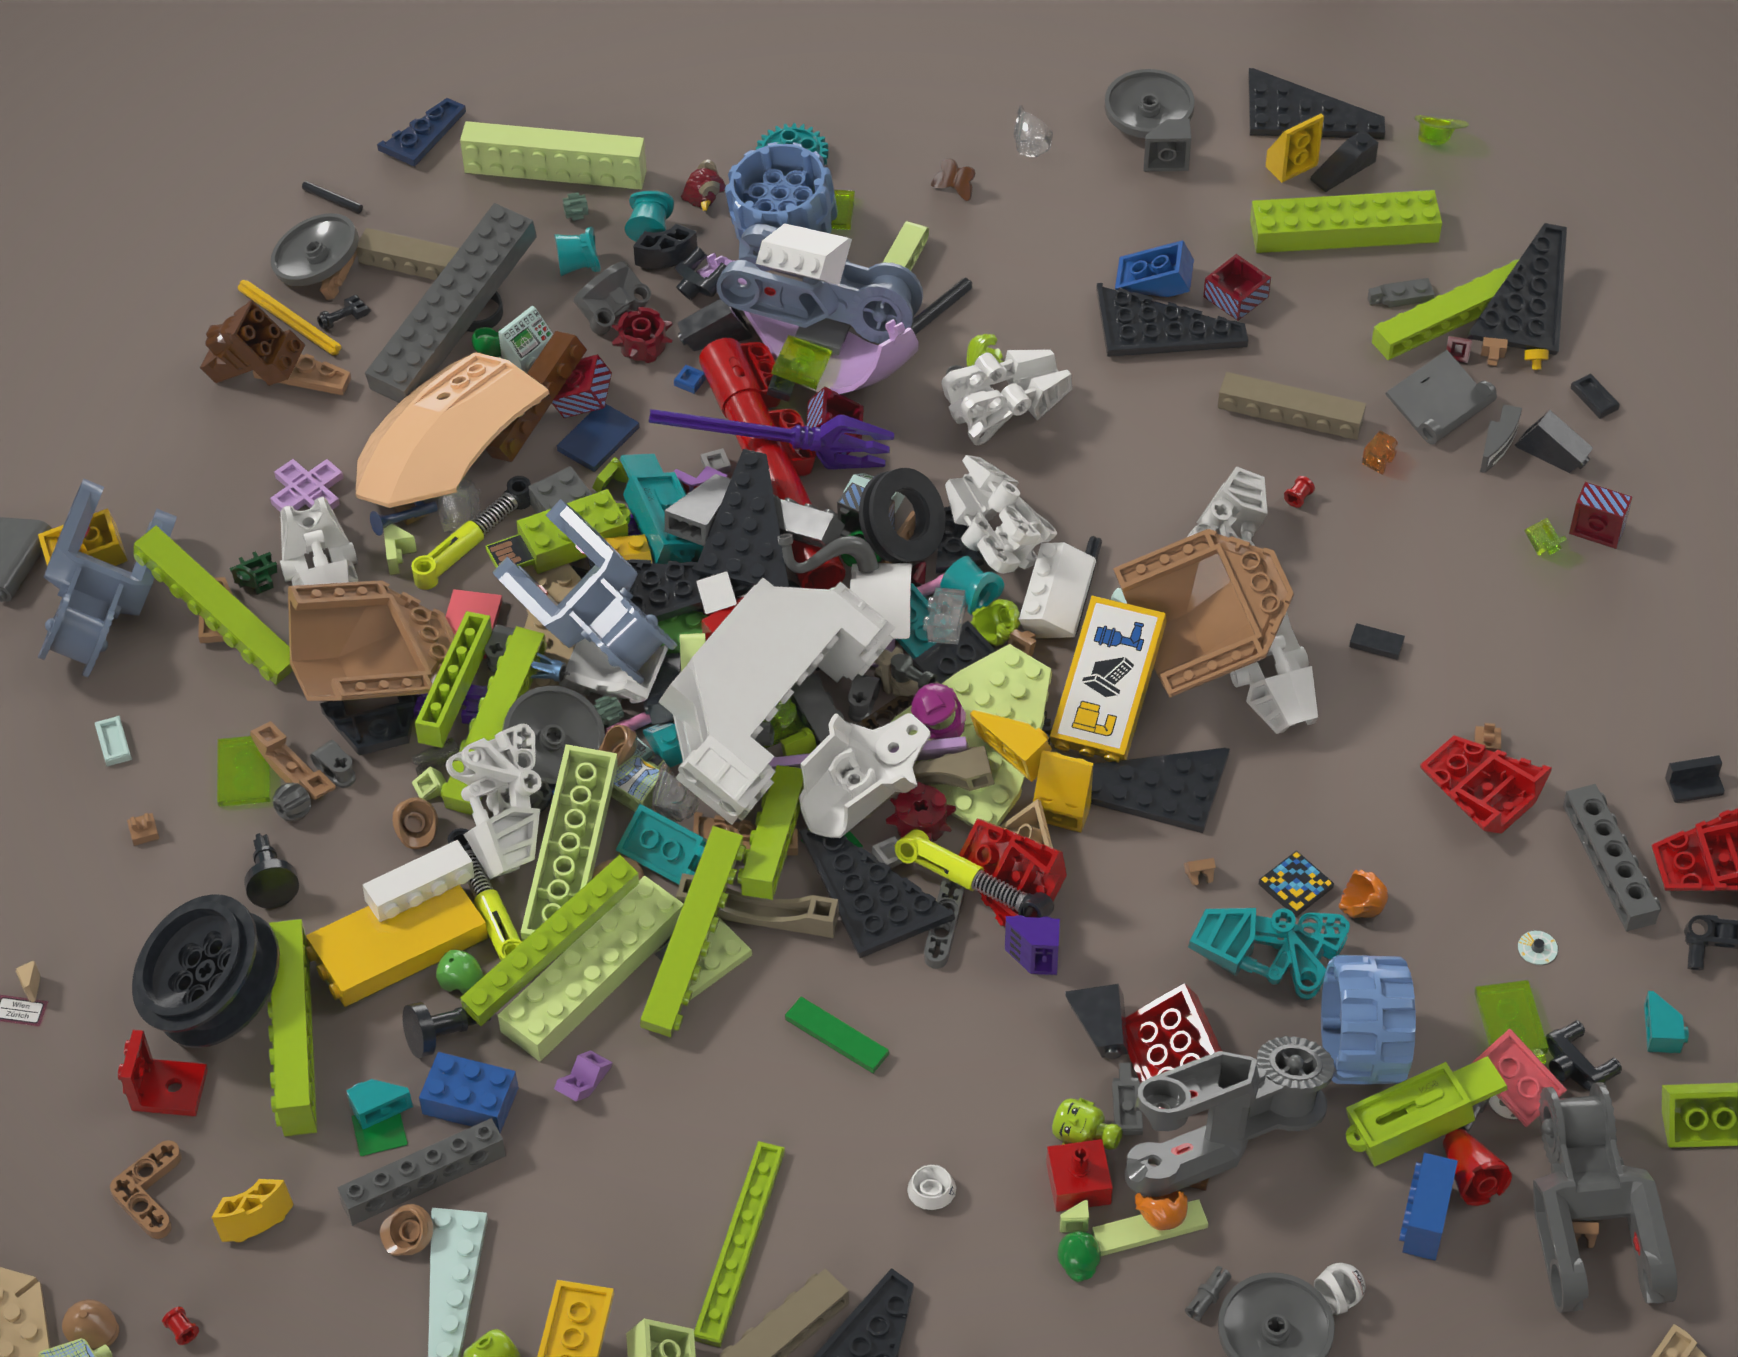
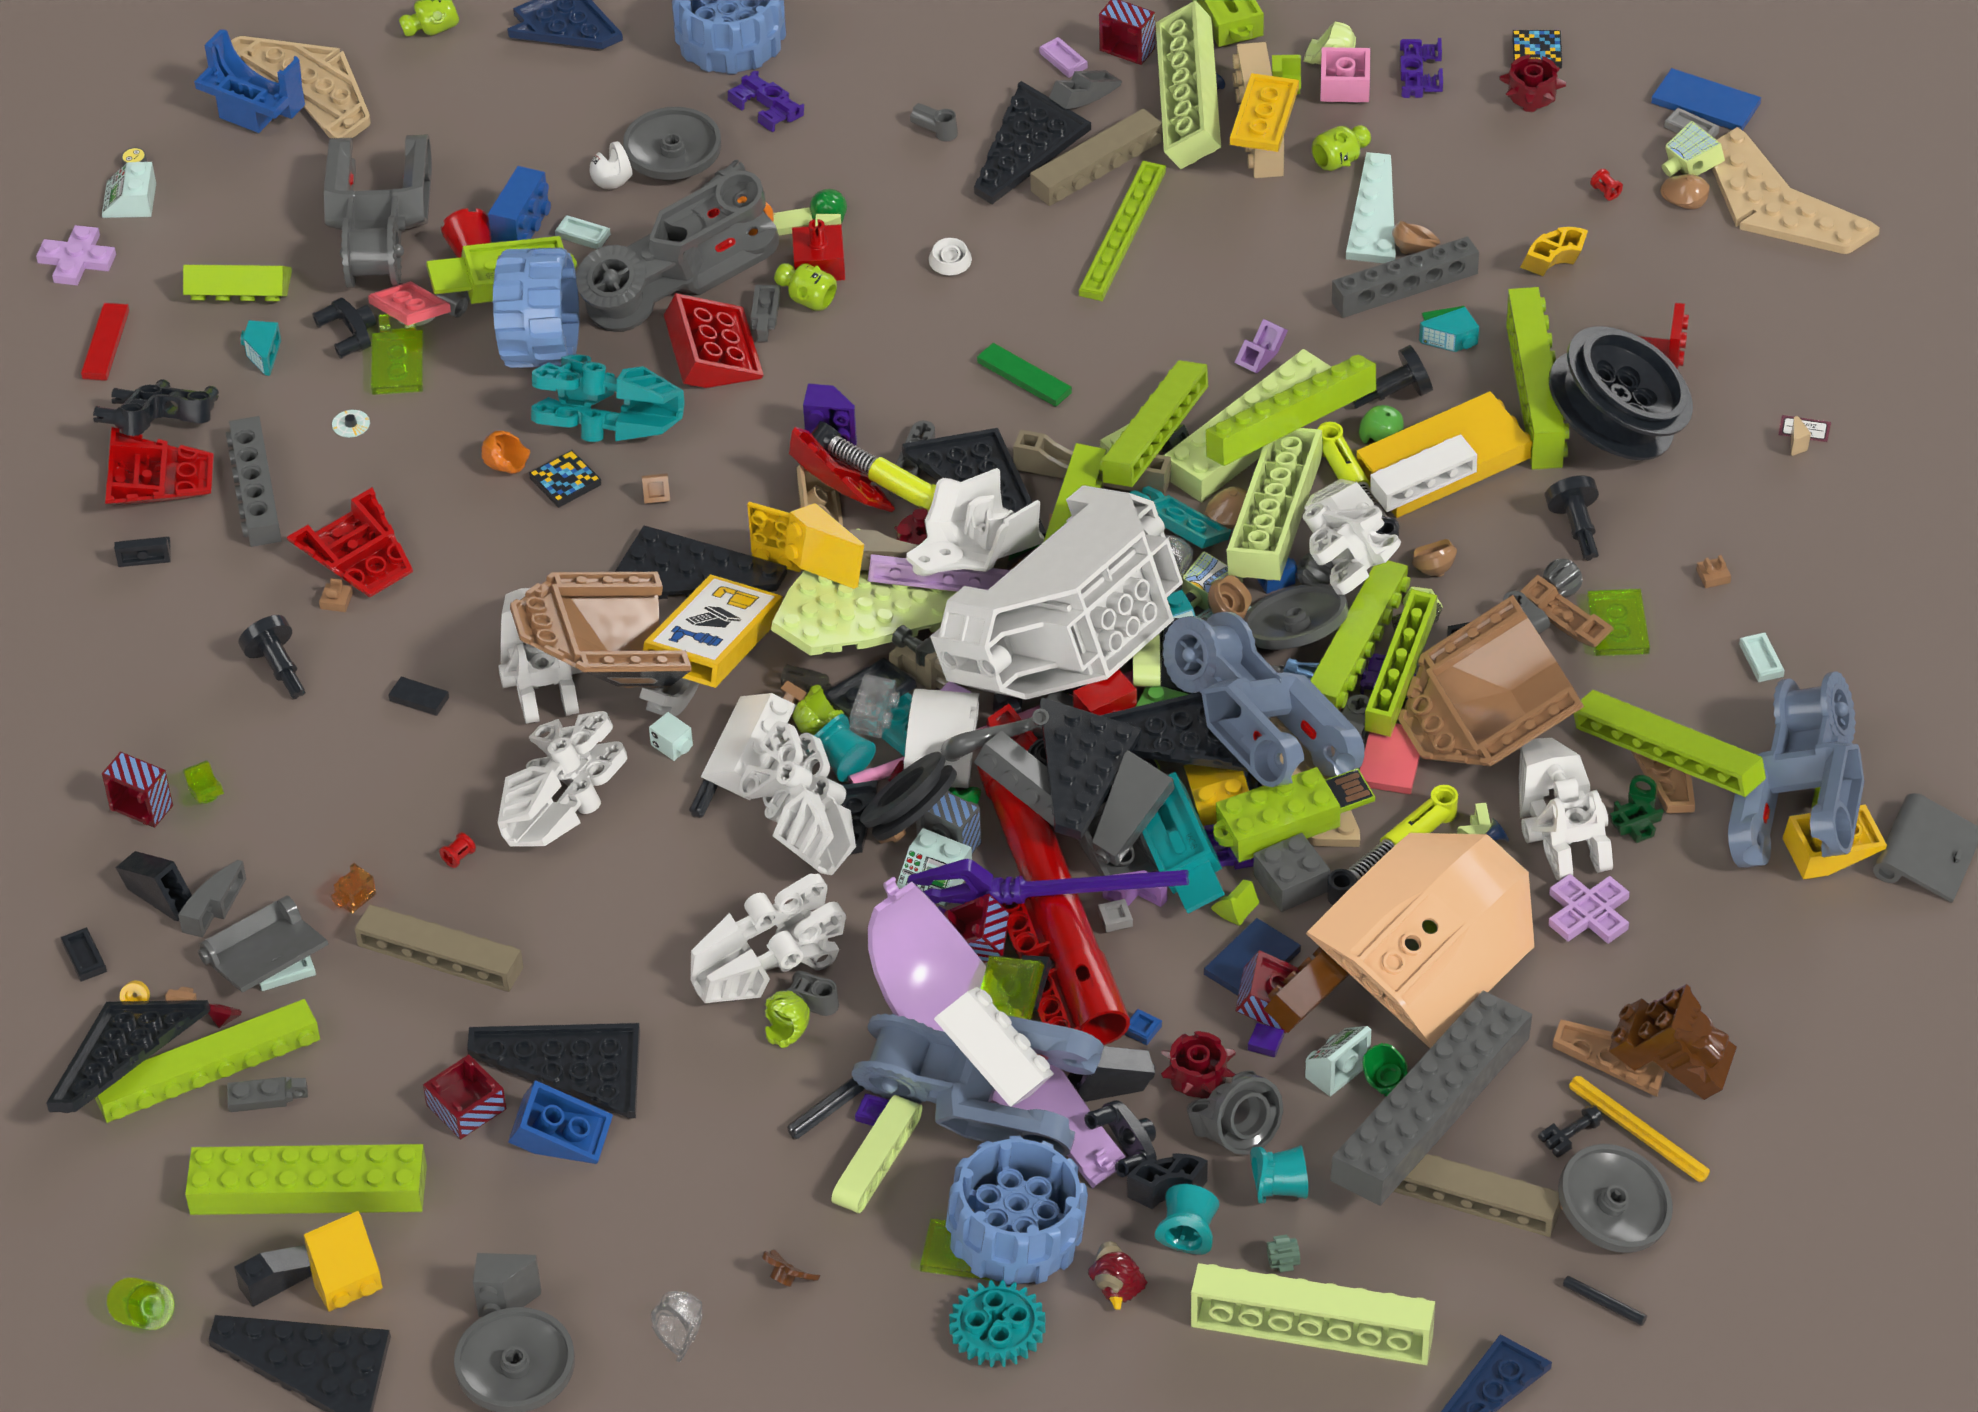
camera: 175 degrees left, 5 degrees down
(138, 1185) = (1669, 283): medium nougat beam -> none
(468, 1091) = (1366, 331): blue piece -> none
(716, 592) = (1118, 708): white sticker -> none
(934, 705) = (895, 587): magenta helmet -> none
(1103, 1017) = (778, 366): black slope -> none
(1354, 1211) = (582, 232): none -> light aqua tile
(1533, 666) = (266, 640): none -> black piece

